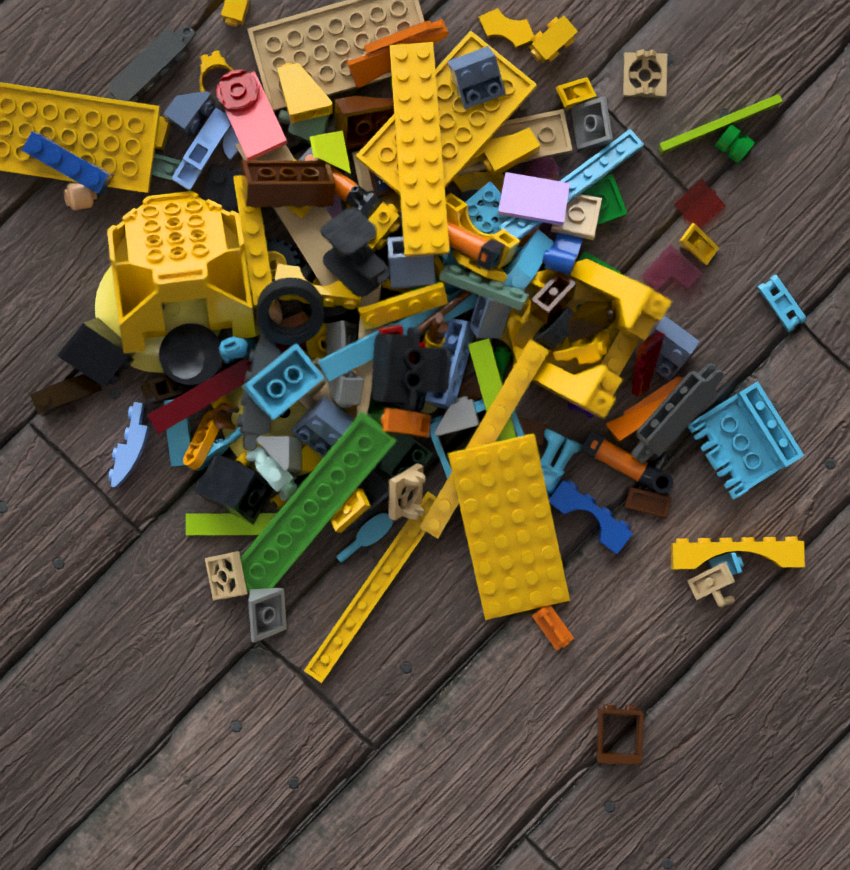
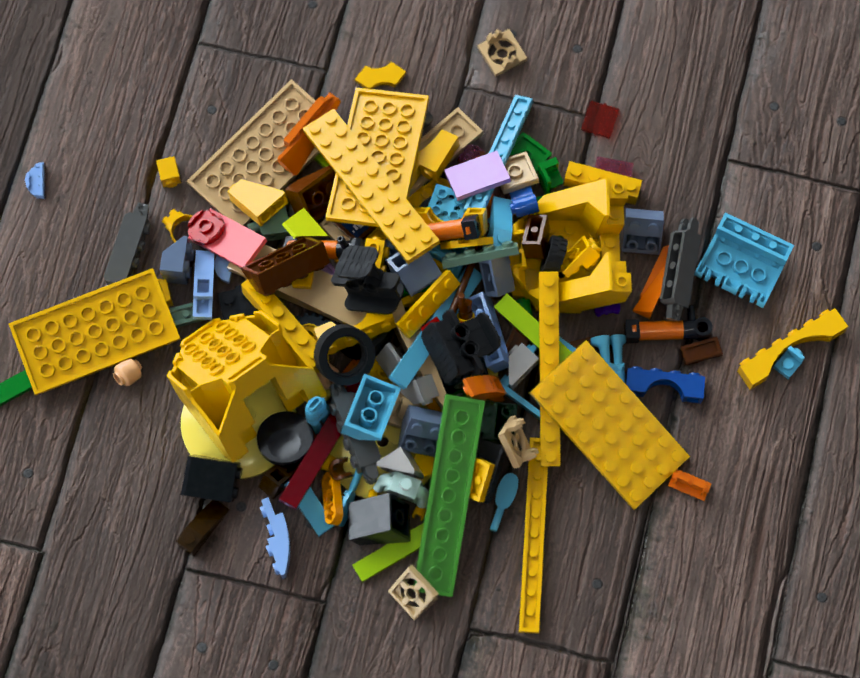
camera: 30 degrees left, 15 degrees down
(67, 162) = (114, 346): blue arch -> none
(266, 612) = (462, 602): light grey slope -> none
(476, 77) = (381, 113): sand blue slope -> none
(546, 44) = (417, 69): yellow brick -> none
(575, 92) = (458, 92): yellow slope -> none
(590, 319) = (575, 231): dark brown slope -> none
(592, 124) = (486, 105): light grey slope -> none
(609, 238) = (549, 175): none -> green panel
(614, 757) = (817, 543): reddish brown window -> none
(646, 362) = (635, 246): dark red wing -> none
(662, 278) = (581, 174): none -> yellow arch
(698, 244) = (618, 144): yellow slope -> none
(711, 582) = (788, 378): tan plate -> none
(720, 124) = (578, 55): lime tile -> none
(734, 144) = (598, 61): green wheel -> none
(782, 303) = (705, 152): medium azure plate -> none

